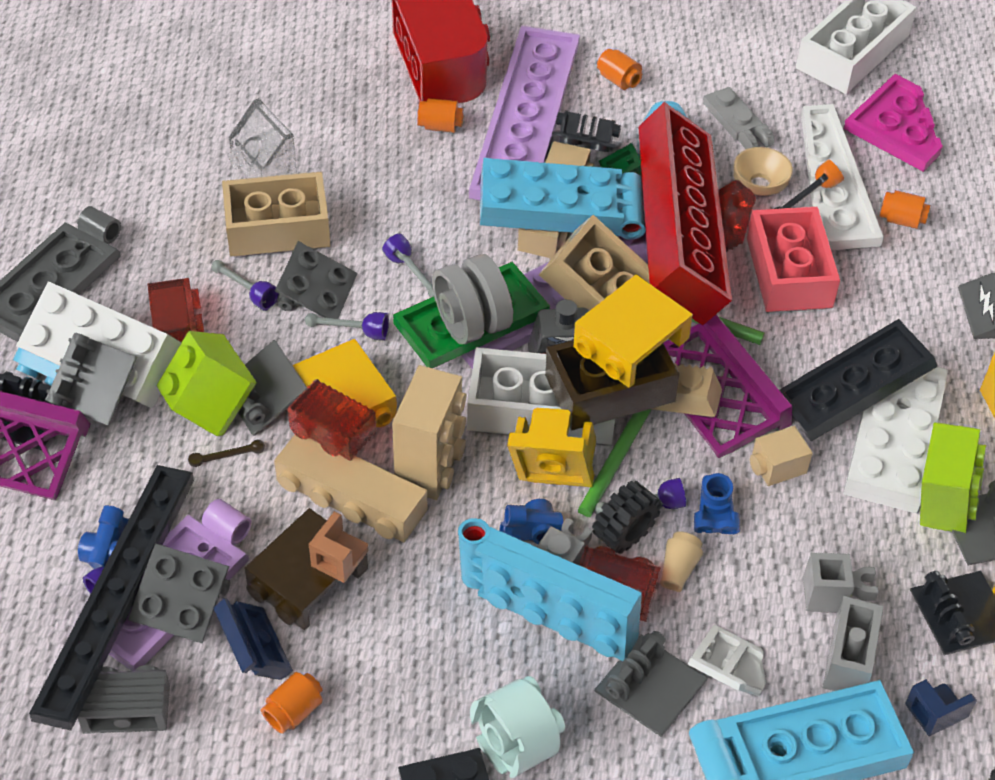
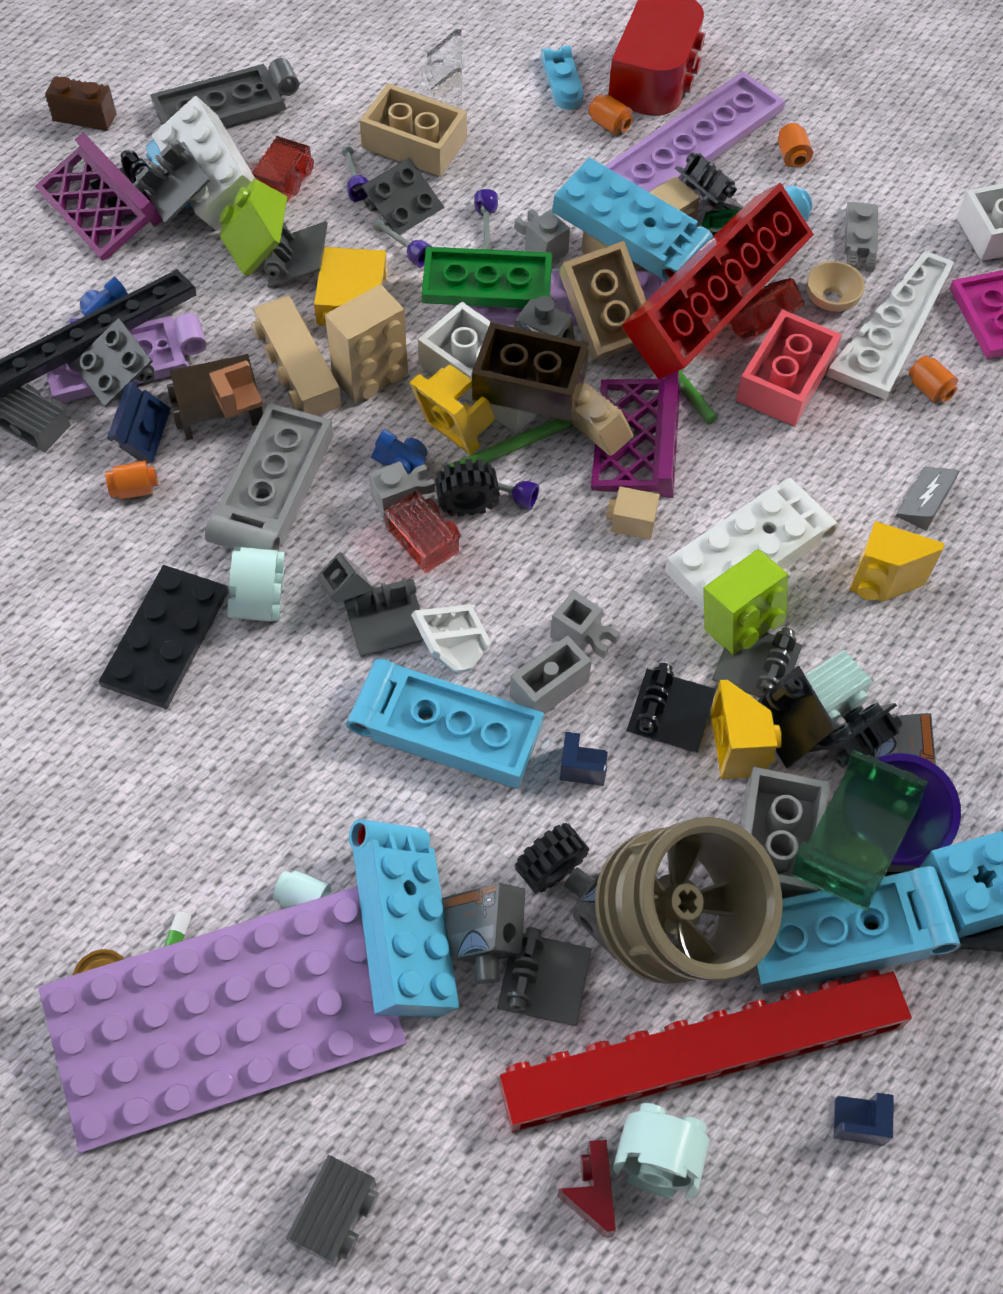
camera: 35 degrees right, 10 degrees up
(197, 459) = (214, 283): dark brown hinge -> none
(332, 420) = (307, 296): clear red brick -> none
(363, 103) = (563, 77): none -> medium azure plate
(432, 605) = (270, 480): none -> light grey hinge
(472, 298) = (475, 259): light grey wheel -> none
(482, 241) = (544, 233): none -> light grey brick
(549, 589) = (358, 506): medium azure hinge -> none
(591, 671) = (343, 579): none -> dark grey slope
(629, 328) = (556, 335): yellow panel -> none
(680, 559) = (486, 543): tan cone -> none
(716, 513) = (550, 521): blue plate -> none
(826, 176) = (882, 317): hinge -> none
(857, 379) = (742, 486): black plate -> none

